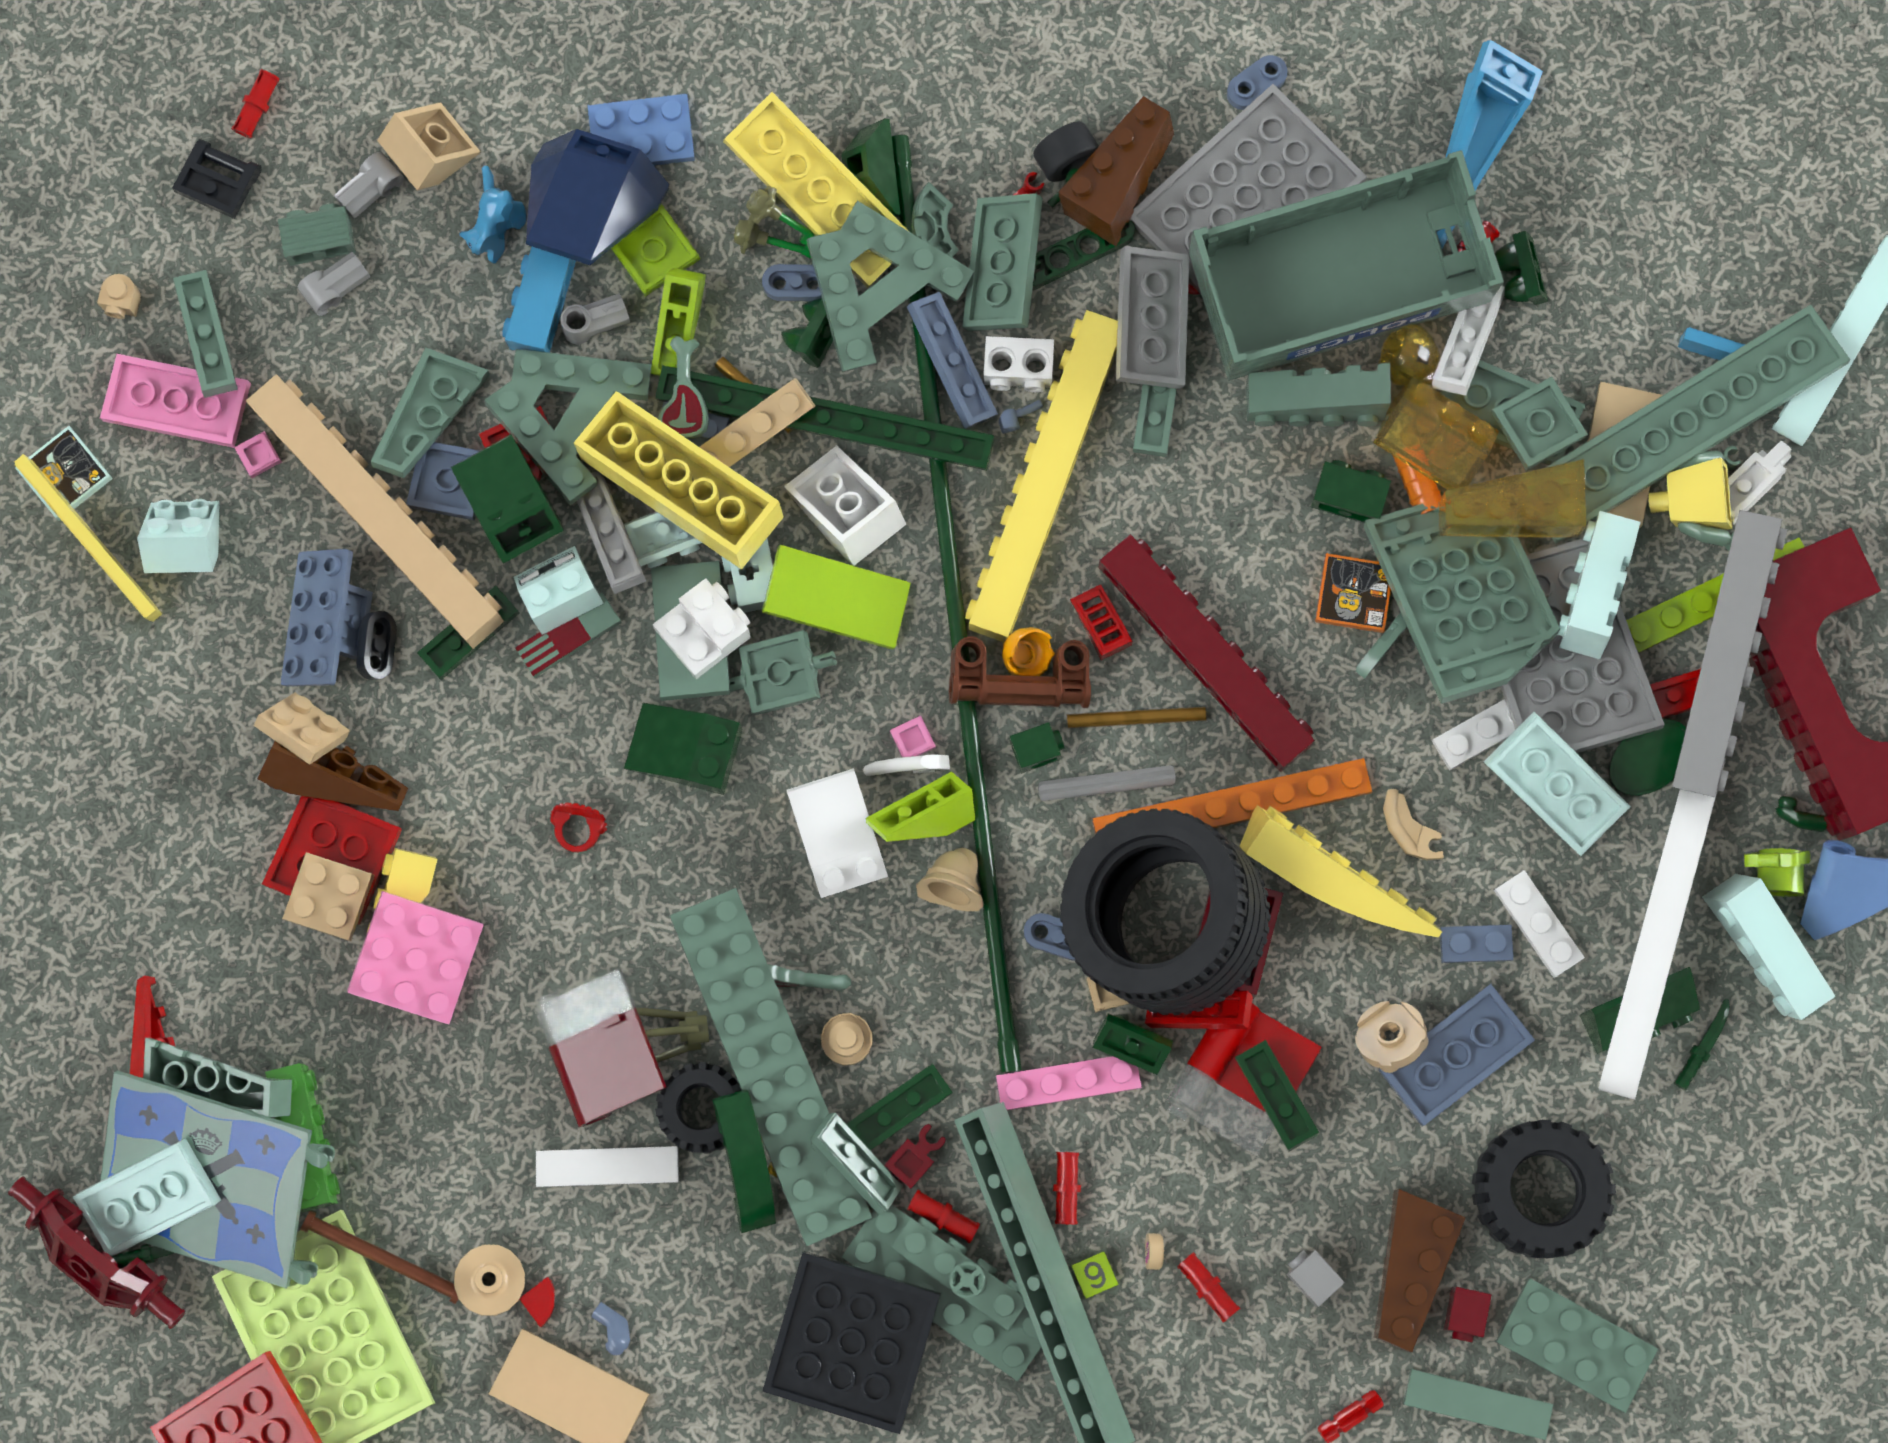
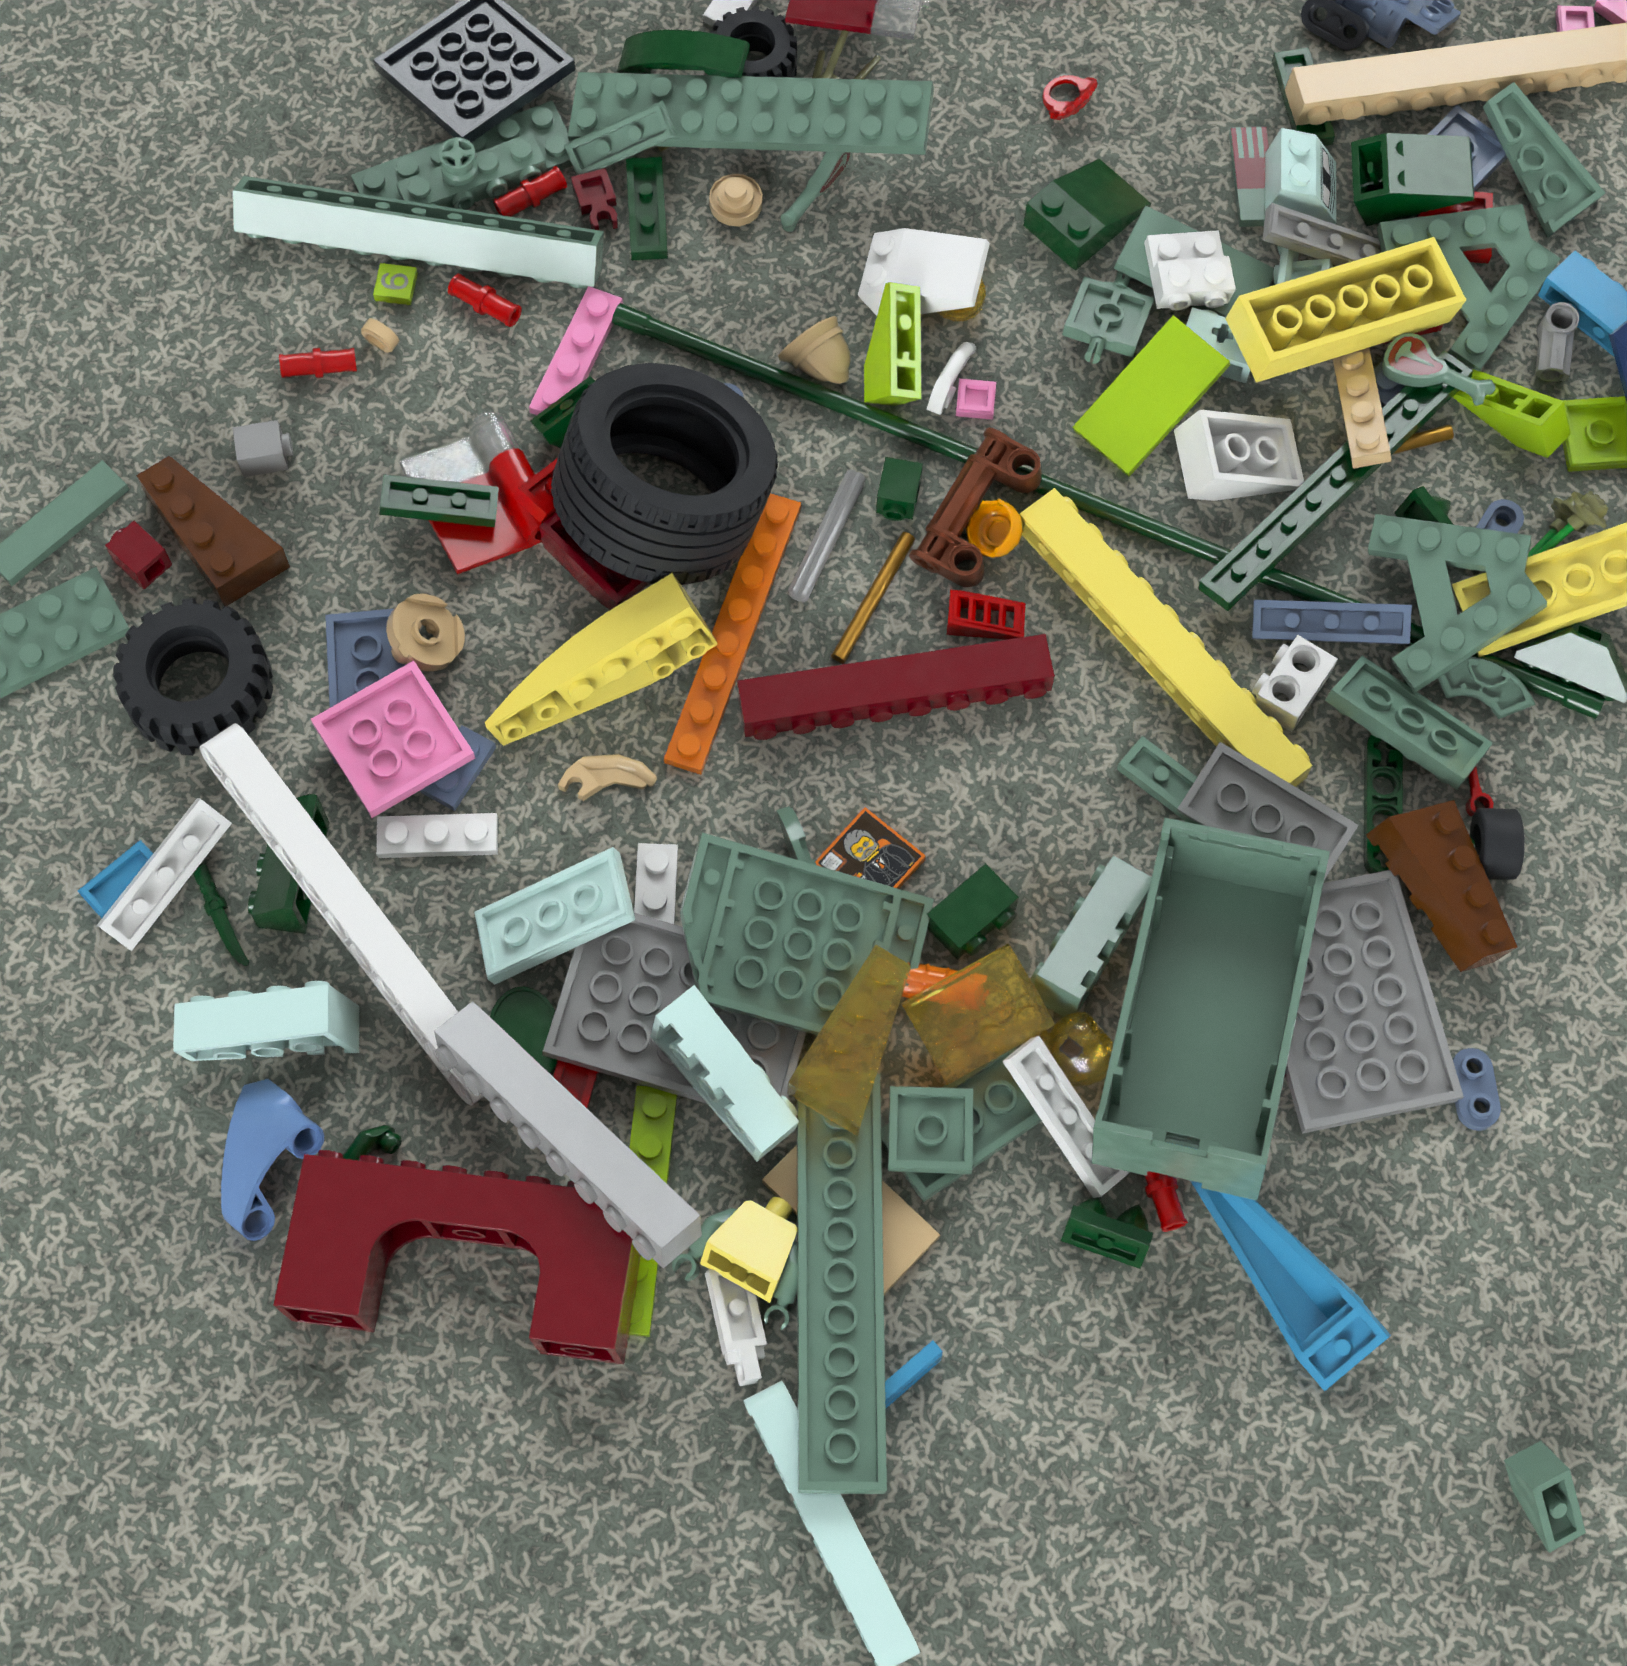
camera: 115 degrees right, 10 degrees down
(1009, 418) = (1240, 647): sand blue hand -> none
(1350, 1416) = (126, 414): red axle -> none
(1496, 997) = (393, 739): none -> bright pink plate
(1707, 1103) = (164, 874): none -> white plate
(1726, 1138) = (111, 882): none -> dark azure tile
(1780, 869) = (331, 1082): lime piece -> none

